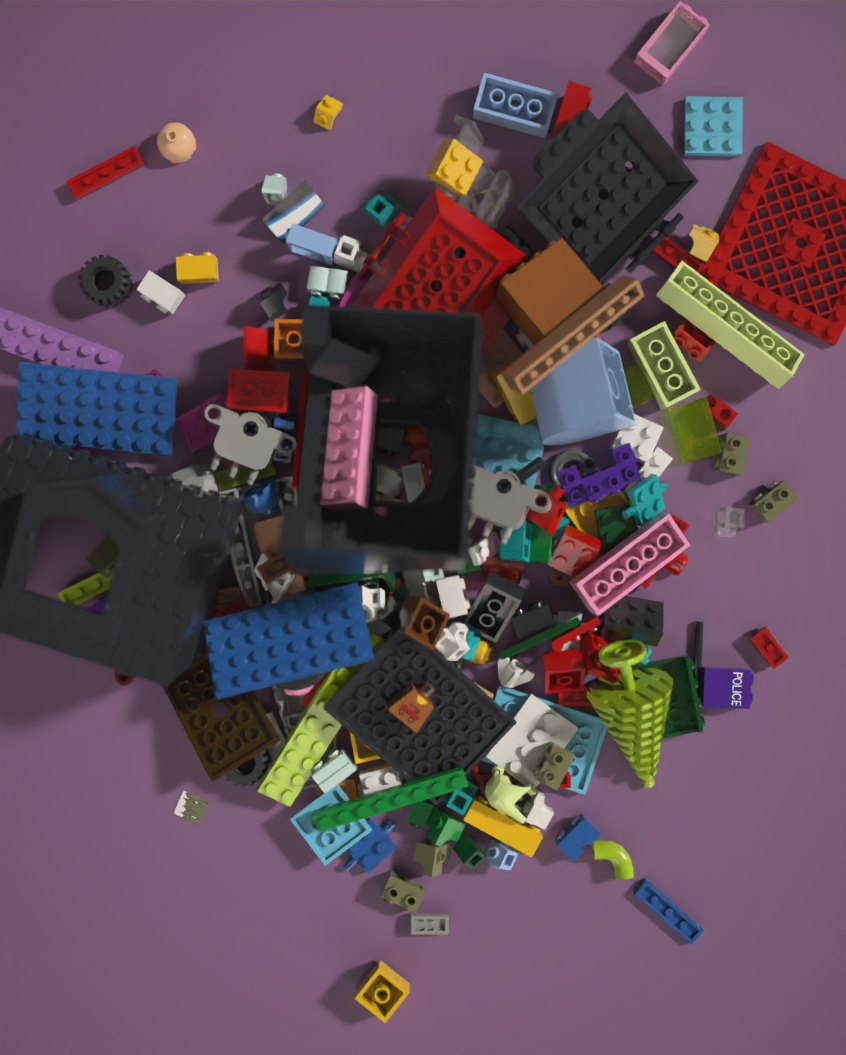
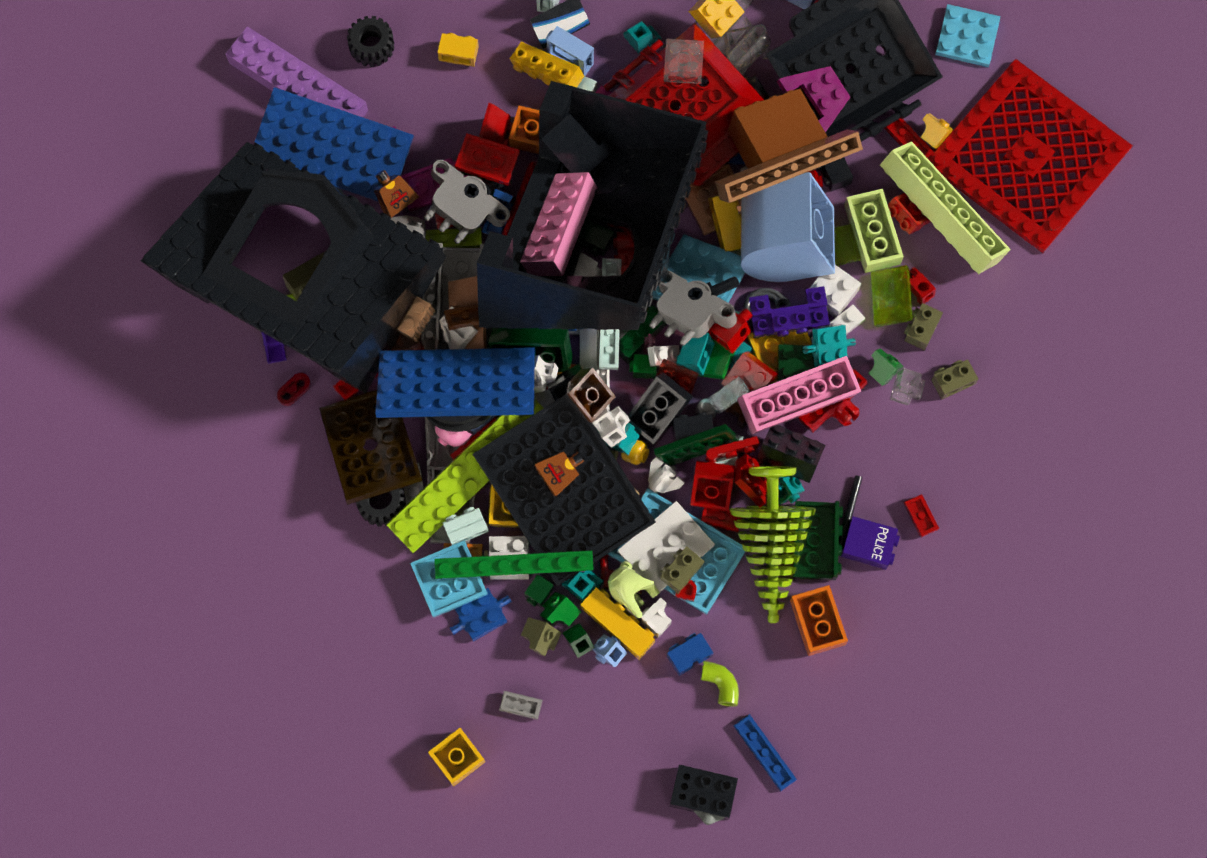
camera: 15 degrees right, 15 degrees down
(161, 292) = (418, 62): white brick -> none
(173, 446) = (393, 193): none -> dark orange torso
(191, 807) = (314, 538): sticker -> none
(230, 576) = (416, 319): none -> light nougat brick
(263, 497) = (464, 258): blue cylinder -> none
(273, 301) = (520, 91): black brick -> none
(293, 268) = (545, 66): none -> yellow brick
(349, 254) = (601, 67): white brick -> none
(403, 892) = (502, 666): olive brick -> none
(435, 237) = (683, 61): none -> clear brick
(452, 596) = (622, 384): white brick -> none
(536, 589) = (705, 406): none -> white hat
(559, 577) = (728, 395): none -> clear light blue plate
(582, 228) = (823, 91): none -> magenta wing
(621, 967) = (704, 793): none -> black piece
(693, 778) = (818, 620): none -> orange brick
(704, 506) = (884, 367): none -> green brick

